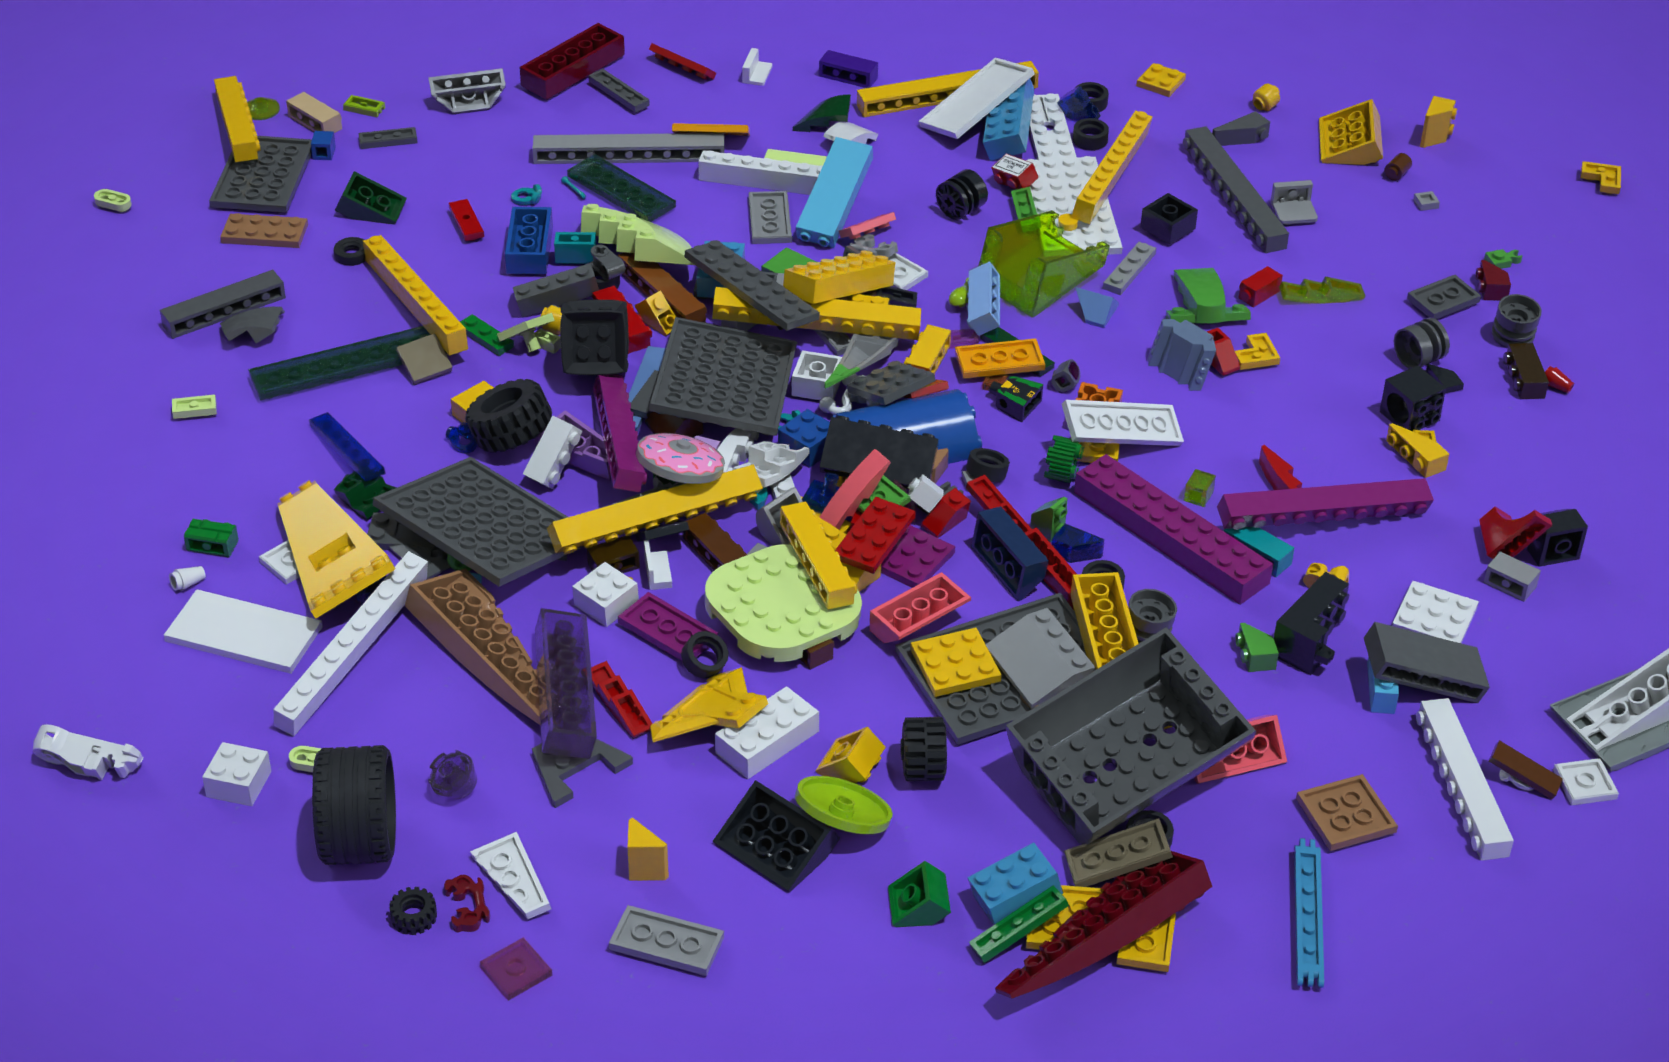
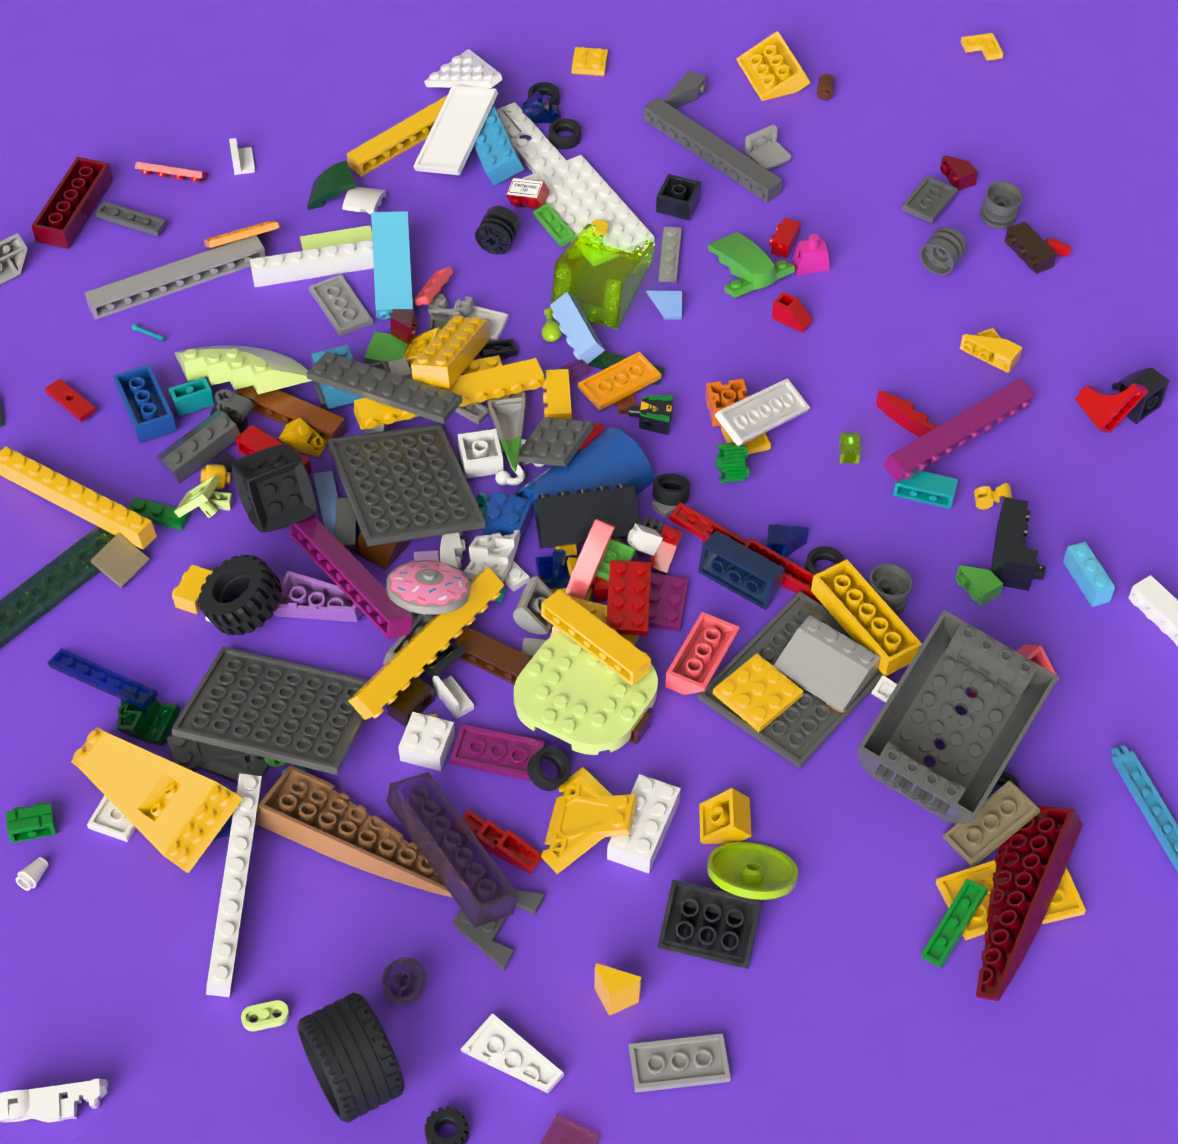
camera: 25 degrees left, 10 degrees up
(237, 774) = (206, 1061): white brick -> none
(243, 631) = (117, 908): white tile -> none
(462, 430) = (197, 620): clear blue piece -> none
(468, 920) = (499, 1116): dark red helmet -> none
(536, 193) = (116, 348): teal piece -> none
(552, 452) = (301, 618): white brick -> none
(621, 188) = (193, 320): plate -> none
(816, 247) = (403, 325): none -> dark red slope
(848, 69) = (323, 133): dark purple brick -> none
(919, 897) = (858, 931): green slope -> none
(924, 748) = (787, 789): black wheel -> none
(1013, 882) = (931, 888): dark azure brick -> none
(1023, 52) = (465, 71): none -> white wing
(1050, 517) = (753, 522): bright green slope -> none
(1066, 376) = (683, 379): dark grey rock -> none
(1112, 167) = (606, 163): yellow brick -> none
(1173, 529) = (851, 495): magenta brick -> none
(1183, 352) = (766, 324): sand blue slope -> none
(1261, 352) = (821, 301): yellow plate -> none
(1266, 97) = (686, 53): yellow head -> none
(1275, 308) = (811, 256): none -> dark pink torso
(1328, 291) = (838, 224): clear neon green slope -> none
(1346, 812) = (1131, 709): medium nougat plate -> none
(1412, 399) = (967, 306): black brick -> none
(1426, 201) = (863, 111): tile -> none
(1426, 662) = (1119, 550): dark grey brick -> none
(1435, 612) = (1089, 499): white plate -> none
(1438, 121) = (835, 34): yellow slope -> none
(1446, 377) = (972, 275): black tile -> none
(1502, 259) = (950, 148): bright green plate -> none
(1512, 576) = (1127, 442): brick -> none

